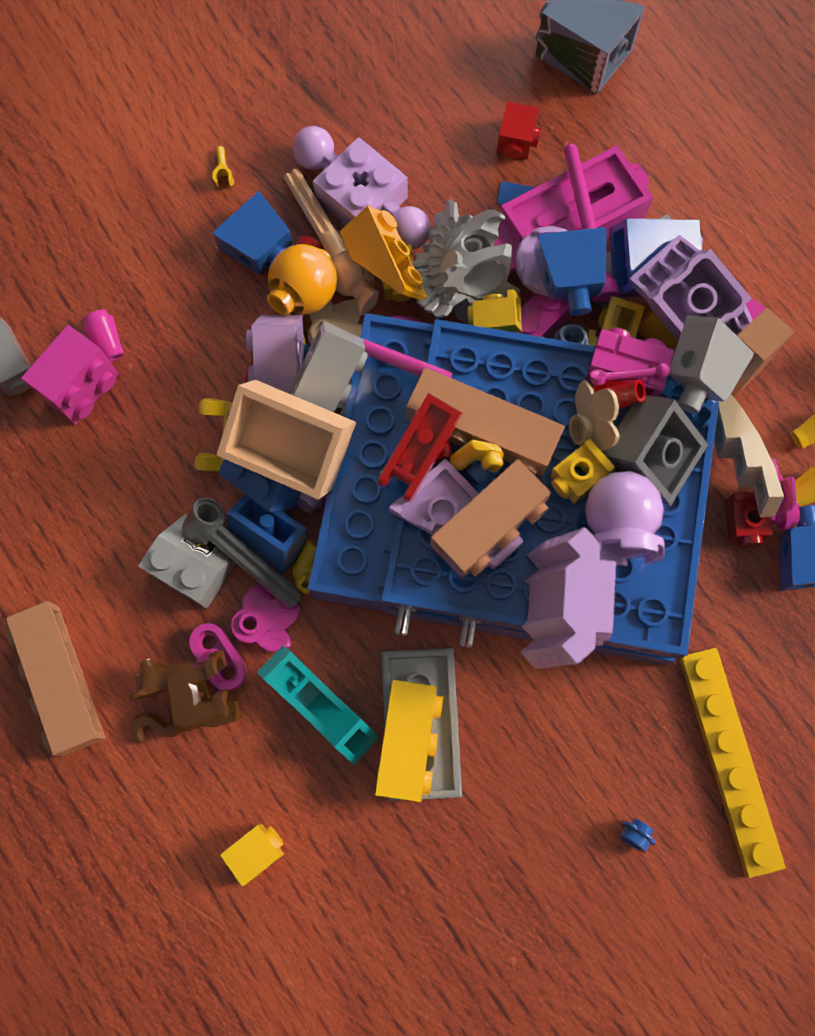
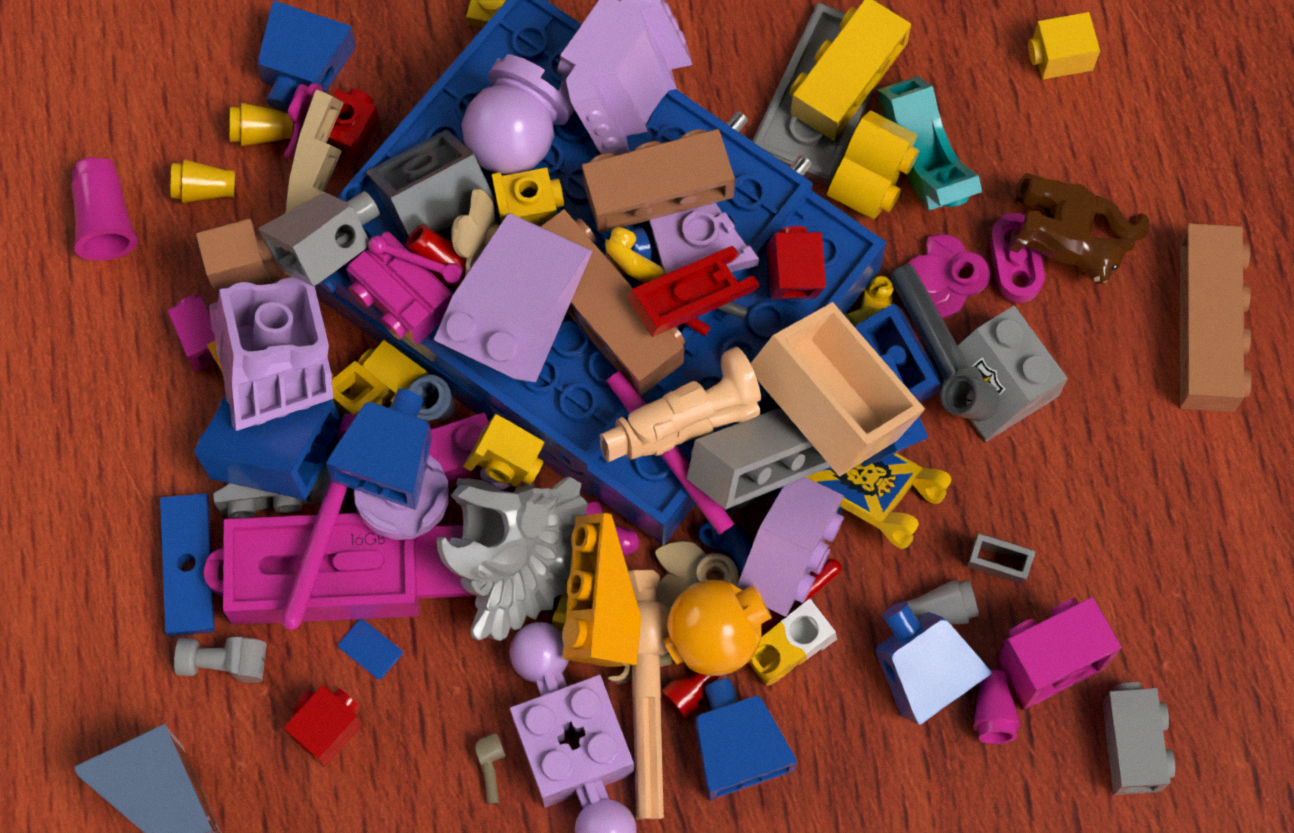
camera: 155 degrees left, 5 degrees down
(138, 429) = (1004, 548): none -> light grey piece
(155, 335) = (926, 662): none -> torso
(163, 385) = (951, 601): none -> light grey cone
(247, 310) = (792, 643): none -> leg
(351, 668) = (873, 165): none -> yellow brick
(360, 522) = (795, 264): none -> red brick
(381, 365) = (686, 412): none -> light nougat piece
(410, 164) = (490, 750): none -> dark tan hand
(544, 379) = (514, 299): none -> lavender slope
(592, 143) = (239, 657): none -> light grey leg
(672, 195) = (185, 539): none -> blue tile

